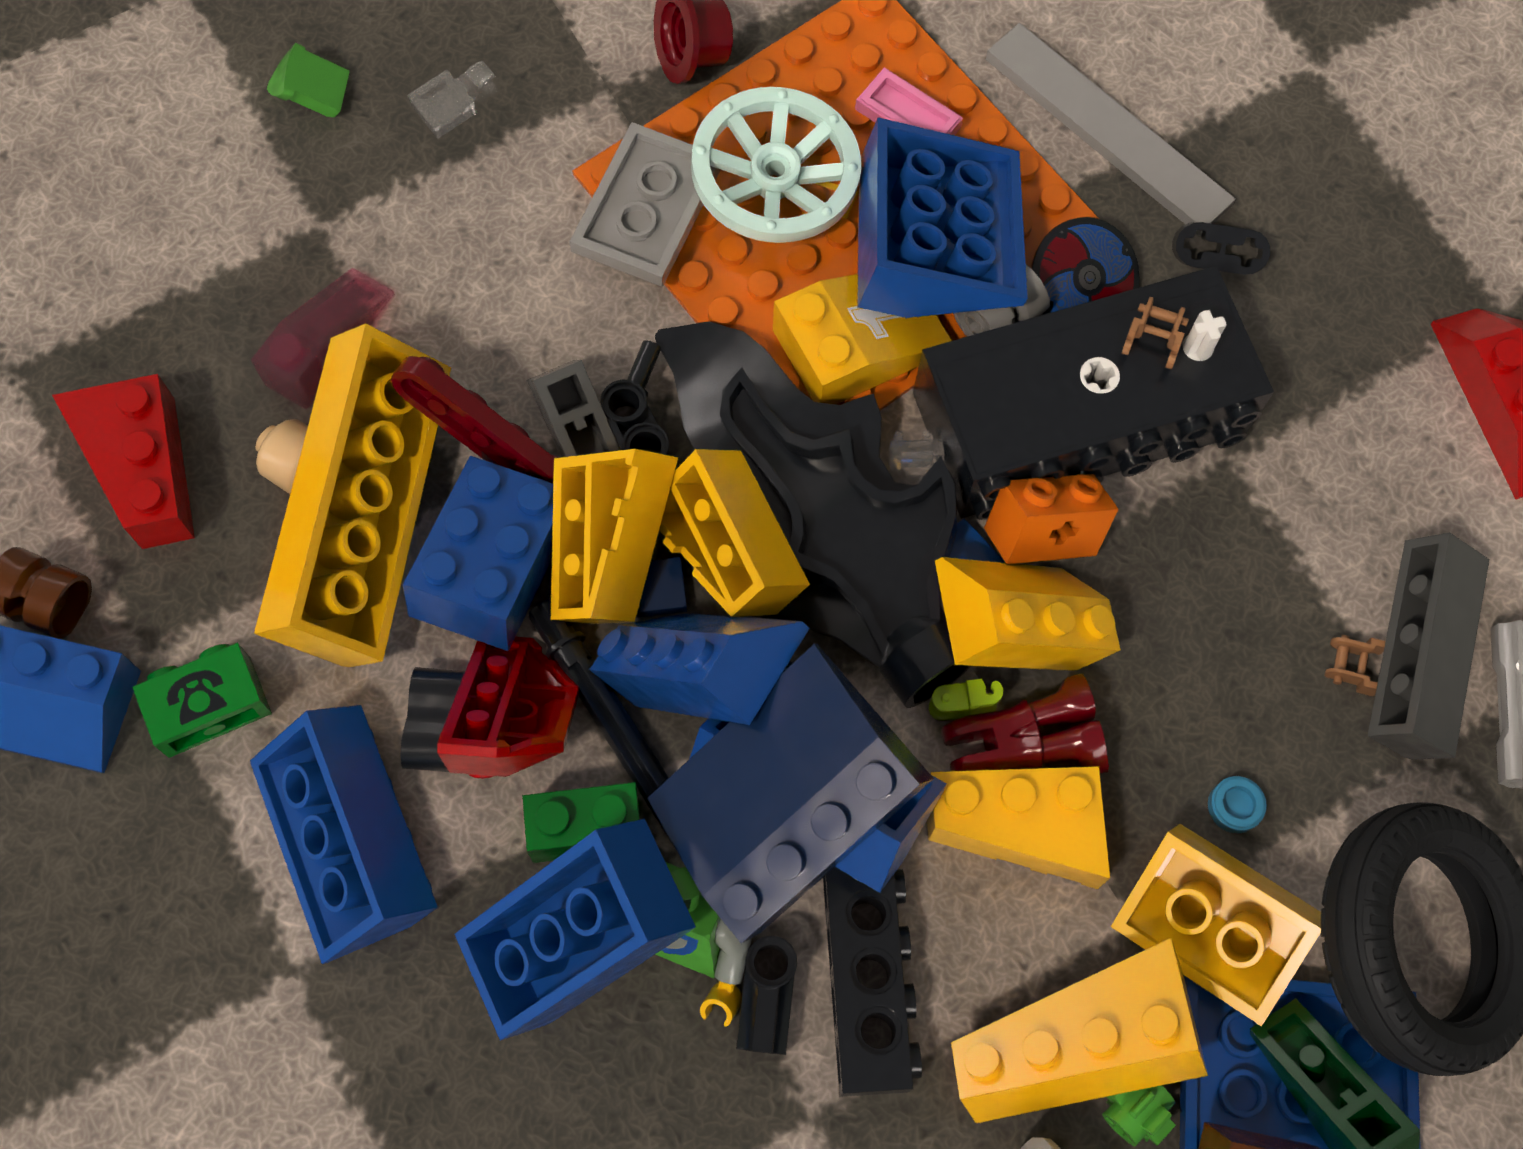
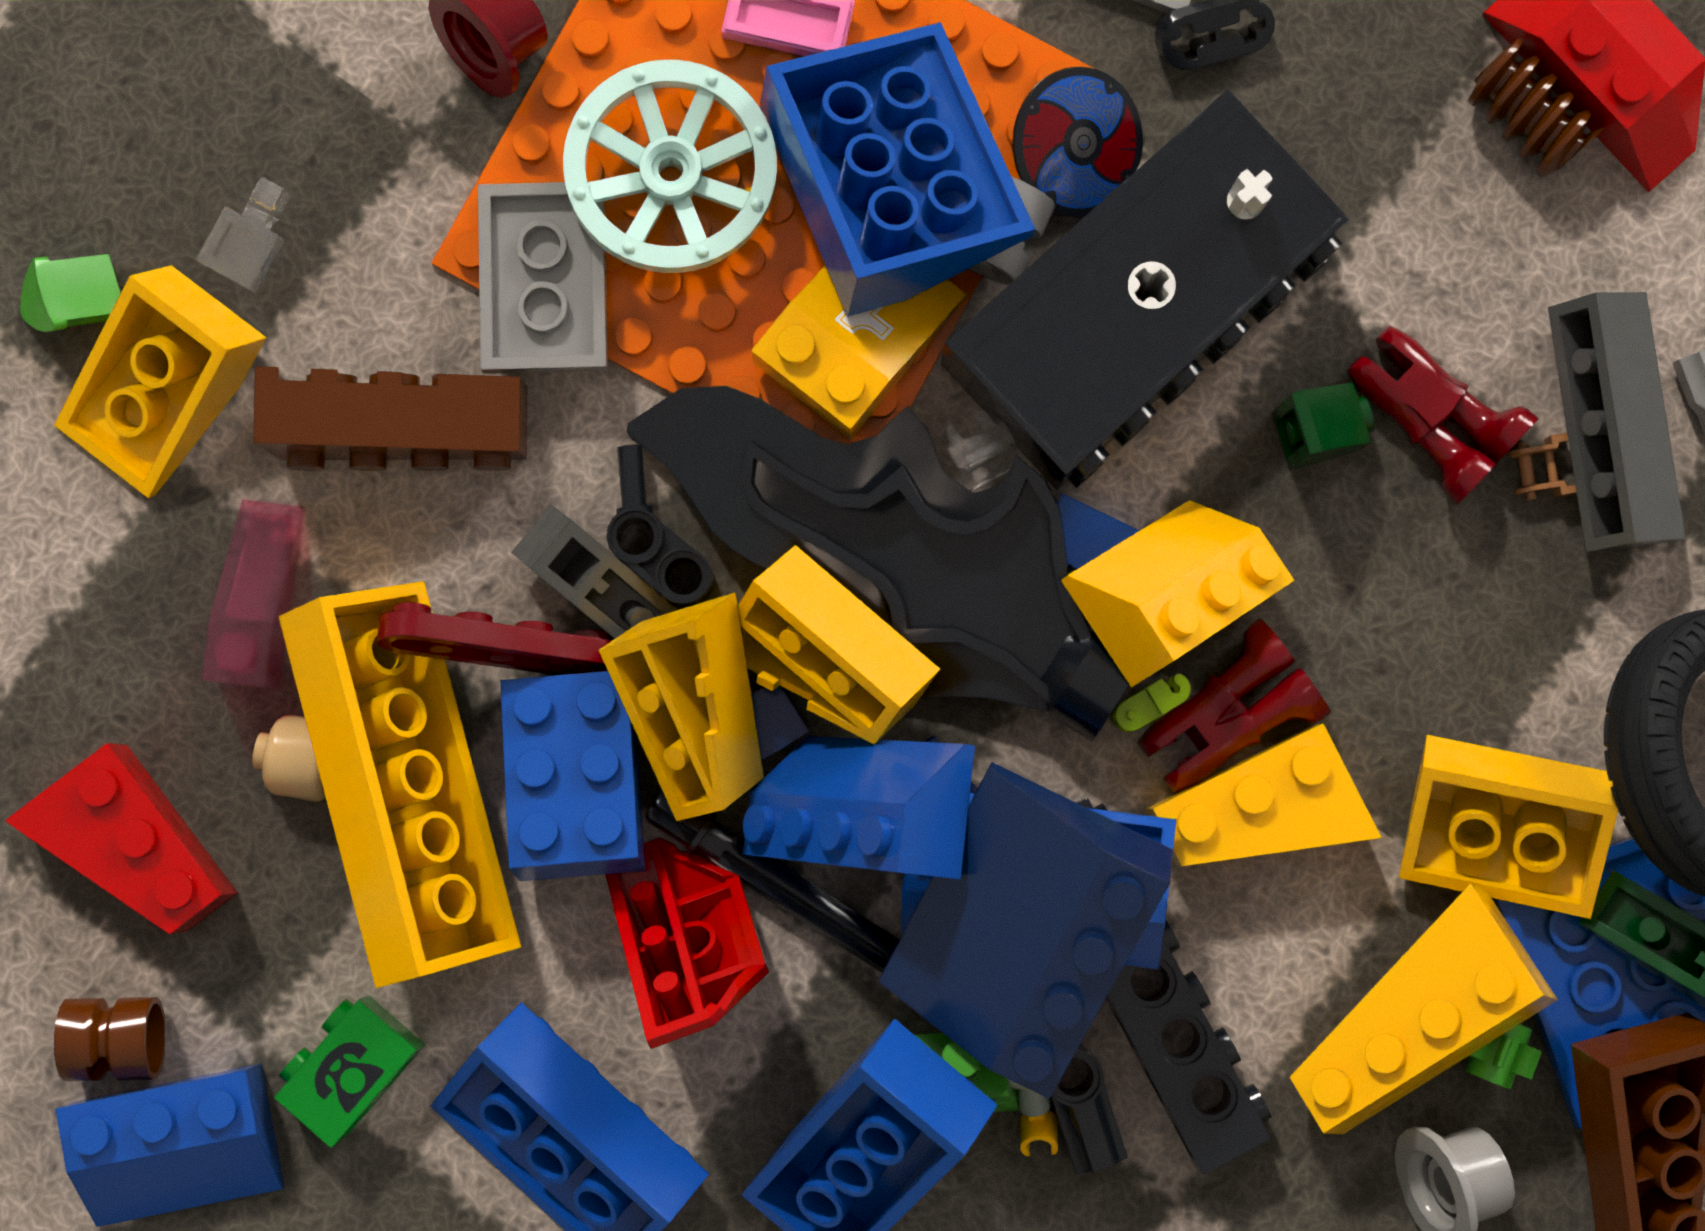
camera: 20 degrees left, 15 degrees up
(337, 158) = (157, 377): none -> yellow slope
(428, 708) = (600, 977): black axle -> none
(485, 248) = (390, 419): none -> reddish brown wedge
(565, 817) = (814, 1019): green brick -> none
(1050, 518) = (1160, 463): orange brick -> none
(1174, 338) = (1219, 212): medium nougat piece -> none
(1190, 547) = (1323, 424): none -> dark green slope
(1237, 804) = (1476, 682): dark azure tile -> none
(1280, 570) = (1424, 402): none -> dark red piece
(1442, 398) = (1532, 110): none -> reddish brown piece

